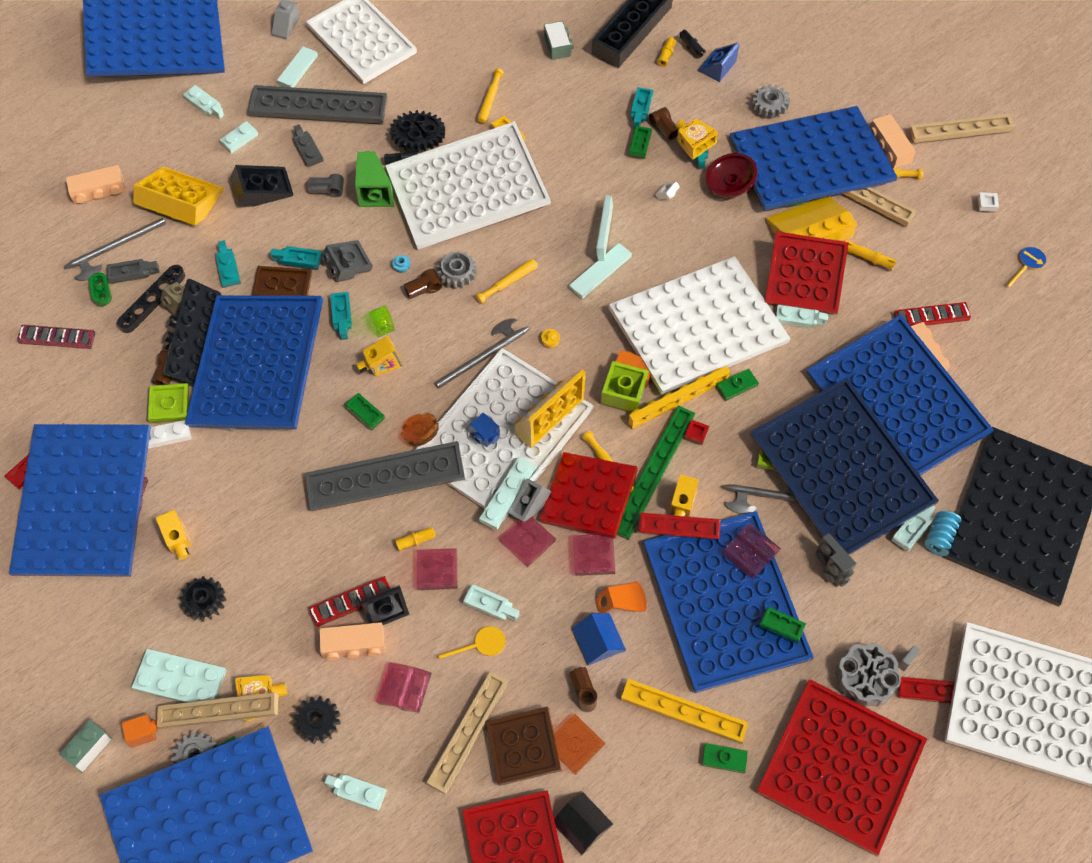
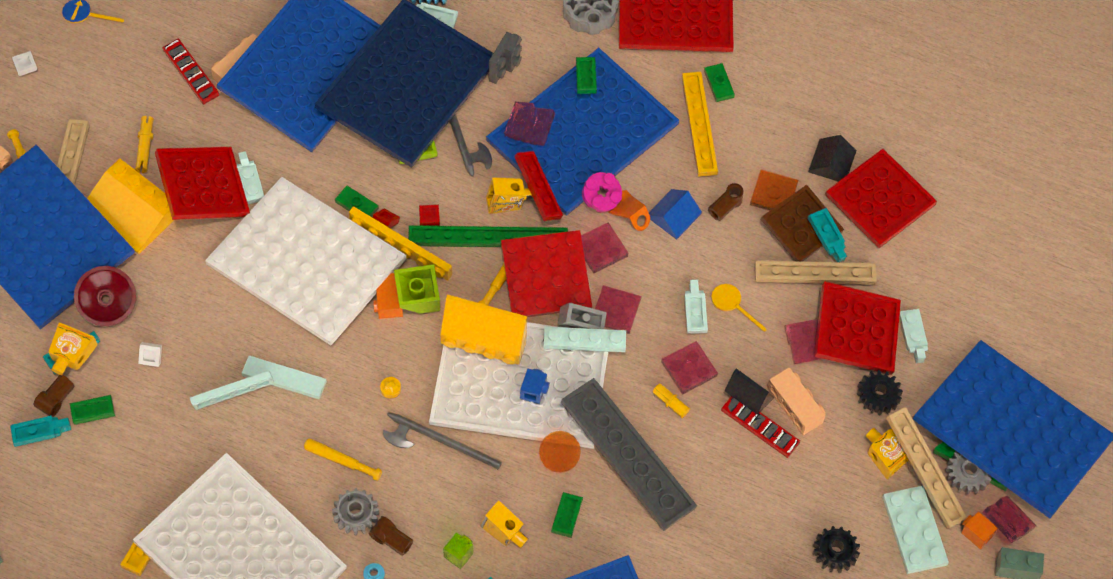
camera: 120 degrees left, 0 degrees up
(128, 761) = (1009, 519): none -> clear pink slope
(387, 734) = (857, 328): none -> red plate
(496, 760) = (828, 234): none -> teal hinge
(656, 587) = (598, 202): none -> dark pink plate
(709, 396) = (386, 217): none -> red plate

